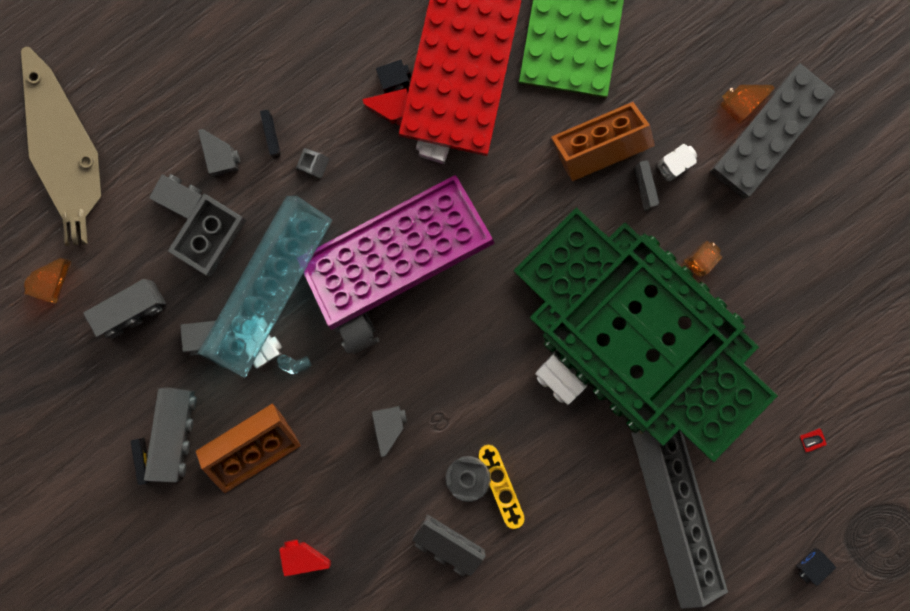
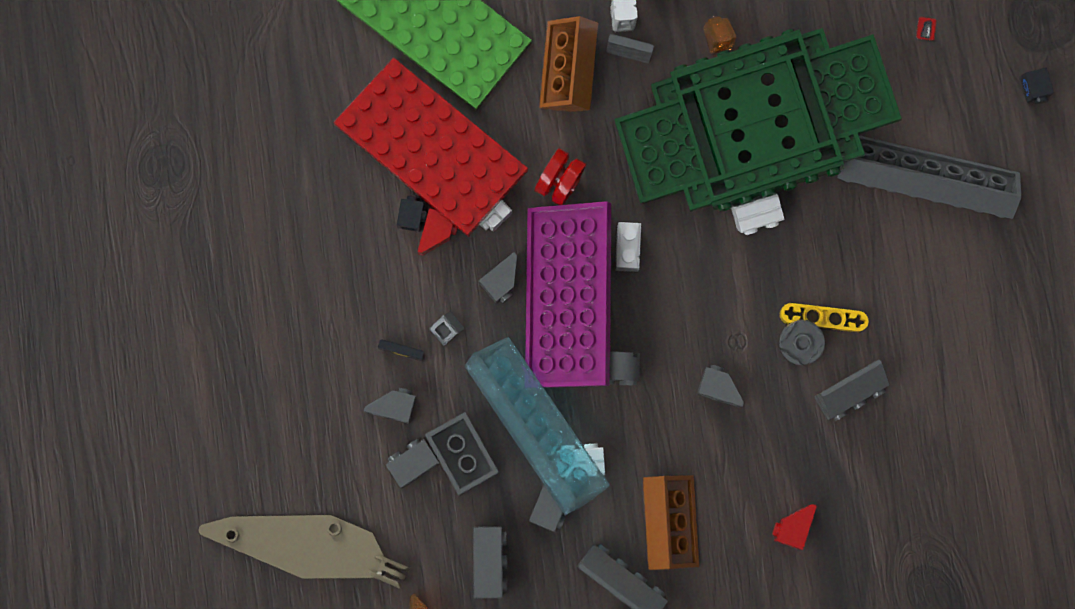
camera: 75 degrees left, 5 degrees down
(292, 366) = (619, 443): clear light blue arm -> none
(379, 186) = (500, 280): none -> dark grey slope
(468, 280) = (628, 246): none -> white brick
(497, 187) = (562, 178): none -> red wheel

